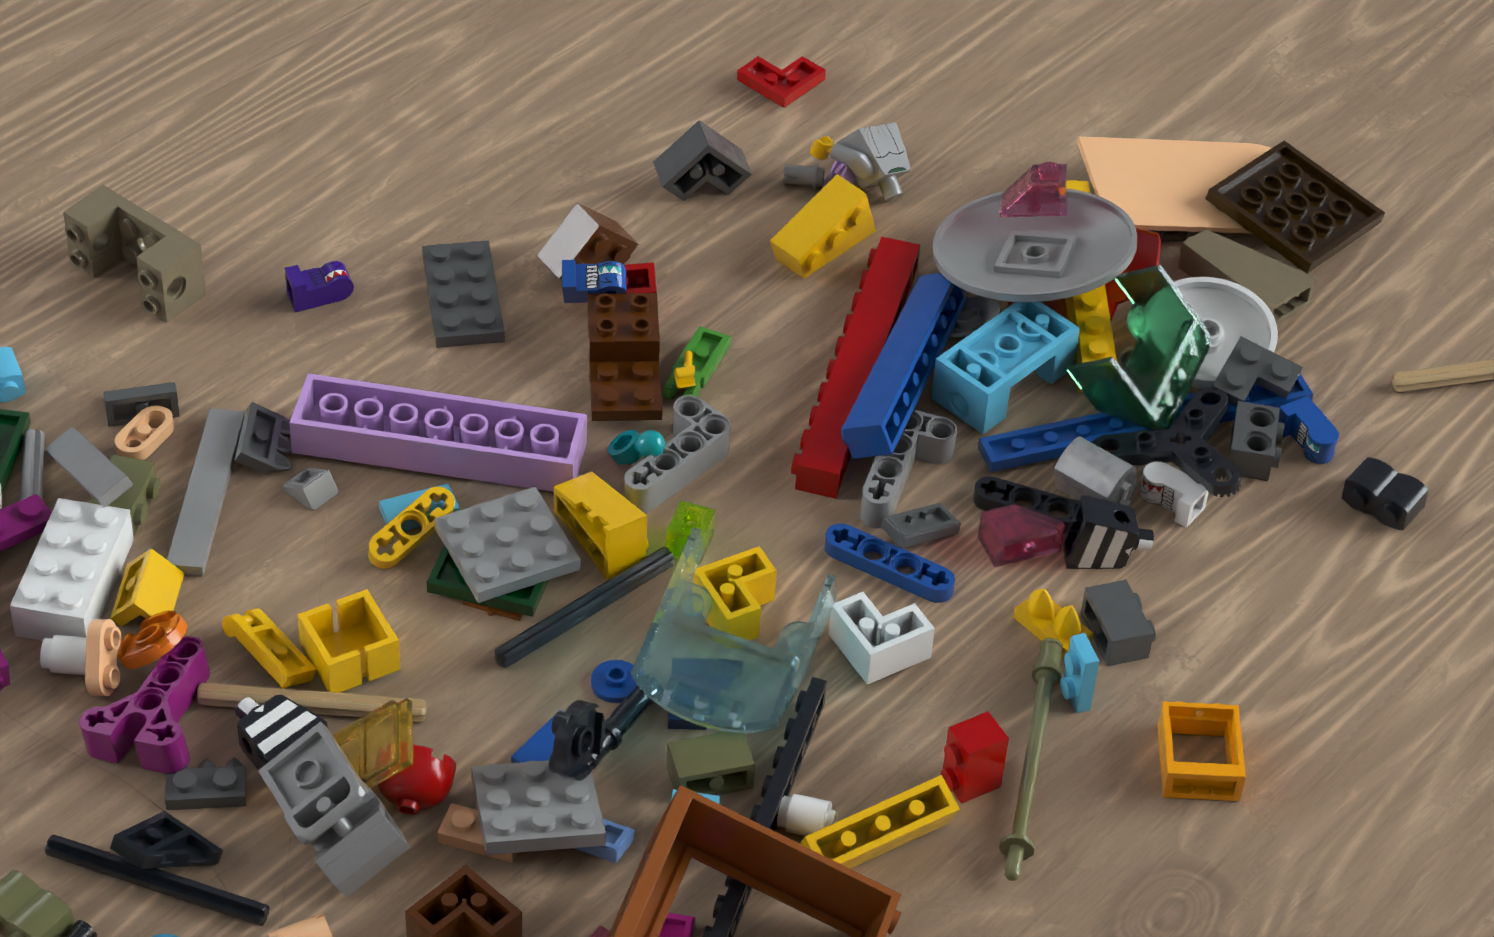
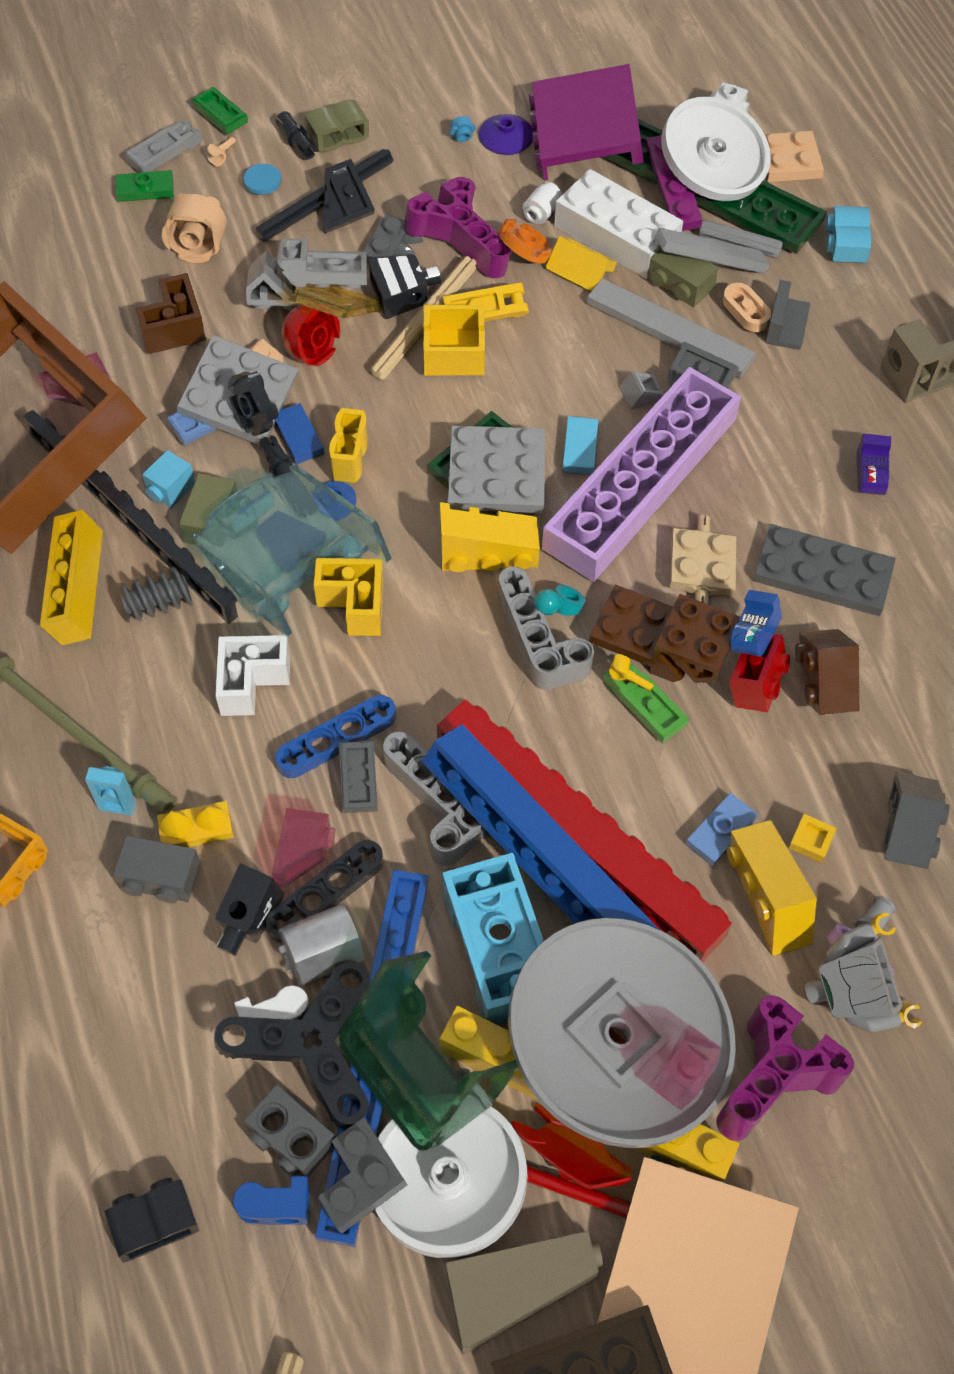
camera: 120 degrees right, 15 degrees up
(101, 657) = (523, 207): light nougat plate -> none
(410, 542) = (564, 430): yellow beam -> none
(512, 373) = (702, 561): none -> tan plate
(554, 674) = (348, 445): none -> yellow brick
(584, 607) = (417, 509): black axle -> none
(680, 529) = (446, 601): clear neon green brick -> none
(763, 220) = (812, 838): none -> yellow tile
(787, 284) = (714, 834): none -> medium blue plate
(805, 814) = (124, 549): white brick -> none
(845, 761) = (154, 594): none -> dark grey piece
(965, 178) = (780, 1068): none -> magenta beam
(974, 757) = (84, 668): red brick -> none

